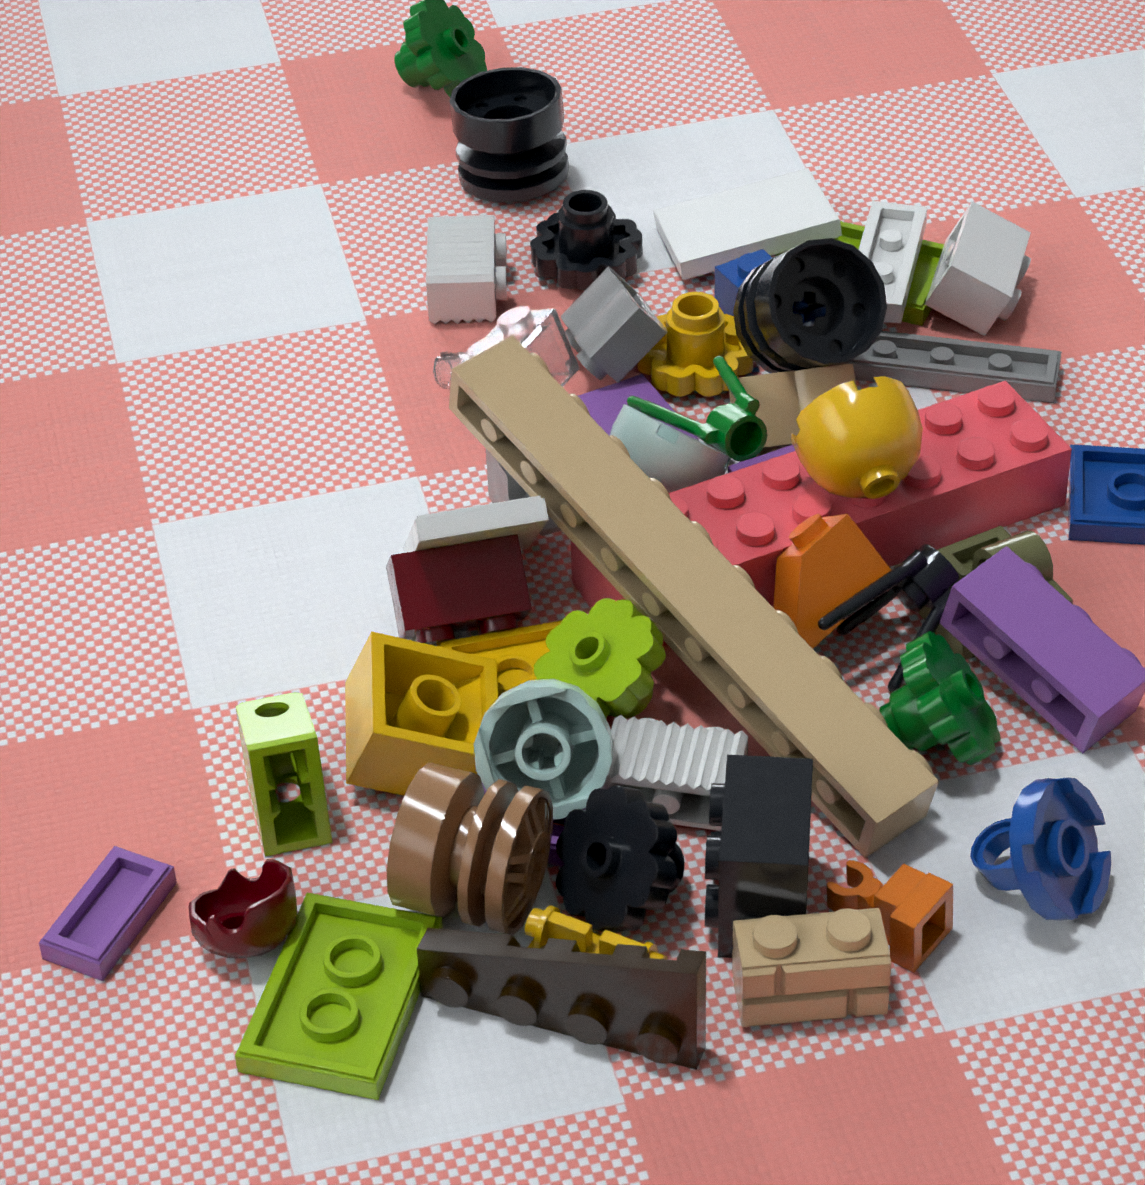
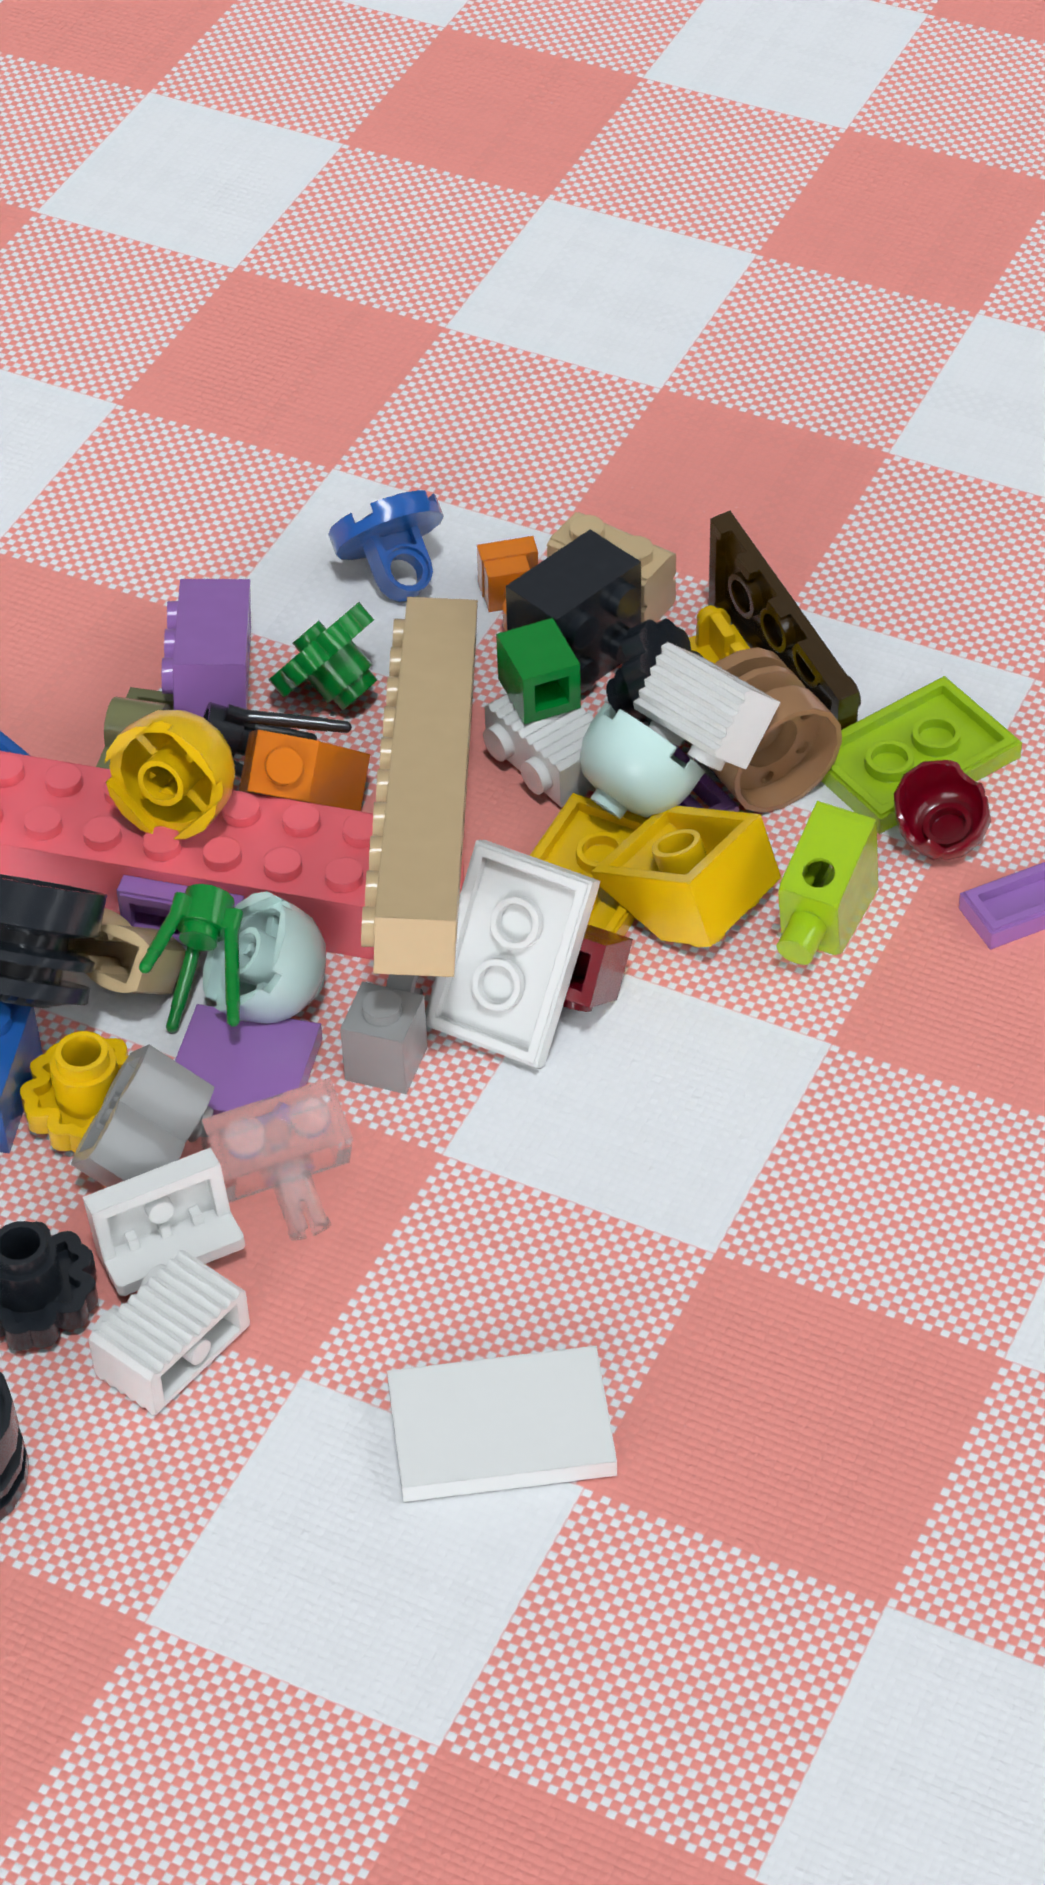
camera: 140 degrees left, 5 degrees up
(199, 351) = (501, 1423): none -> white tile
(491, 740) = (706, 707): none -> white brick
(548, 286) = (159, 1213): none -> white bracket
(606, 656) = (528, 804): lime plant -> none
(701, 733) = (538, 671): none -> green brick

